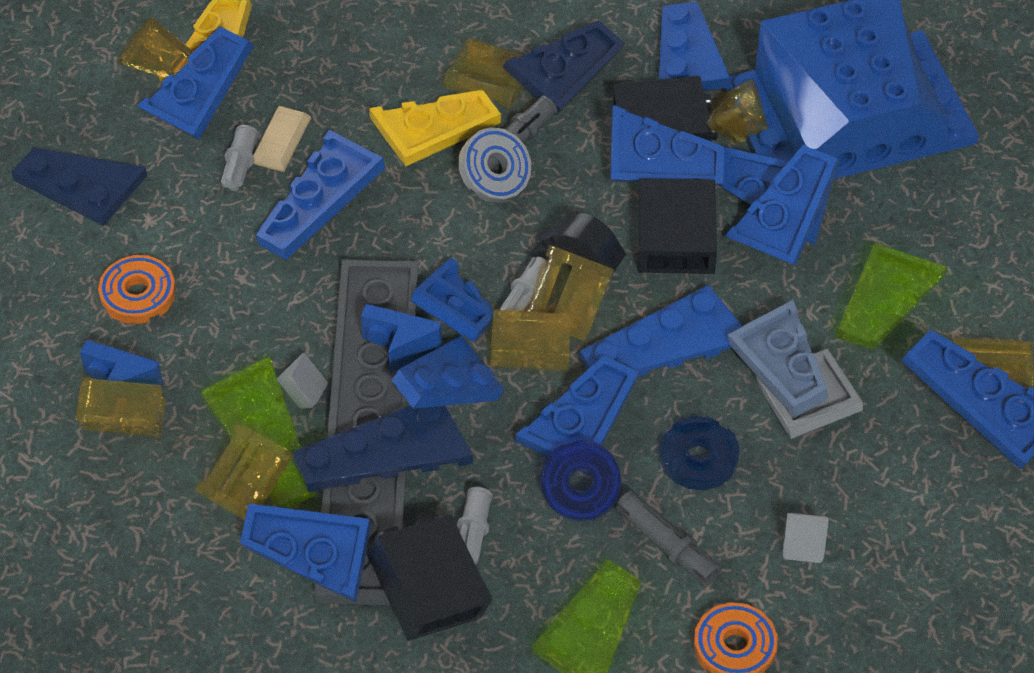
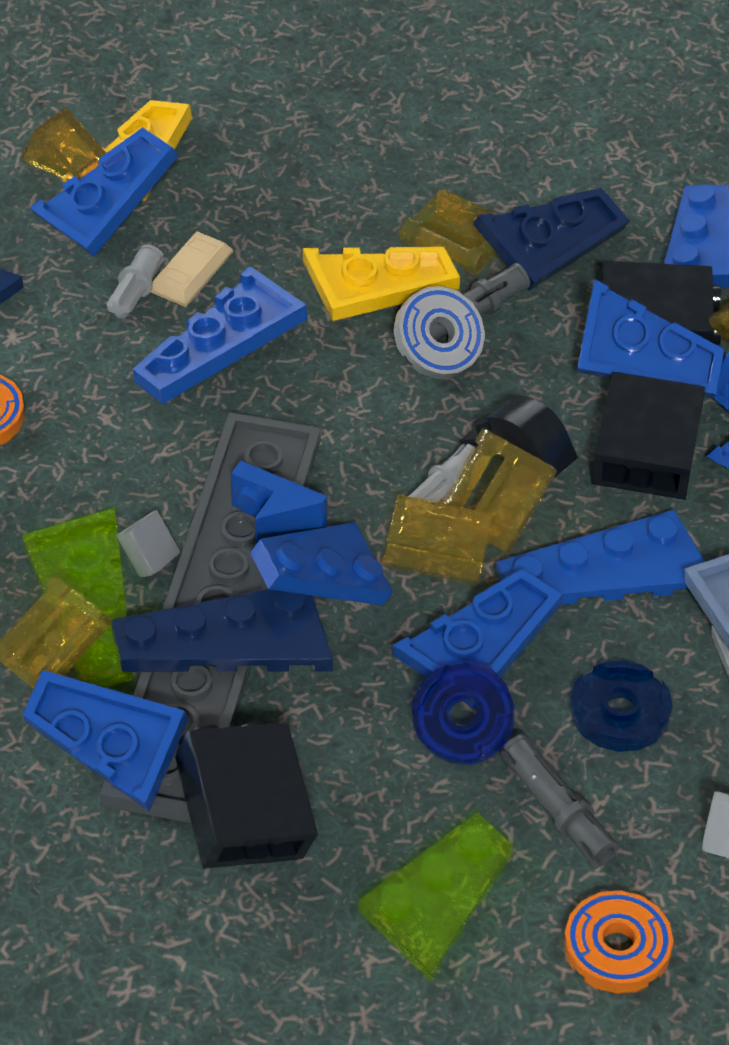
camera: 10 degrees right, 5 degrees down
(454, 301) = (353, 480): blue wing -> none
(474, 524) = (319, 742): light grey axle -> none

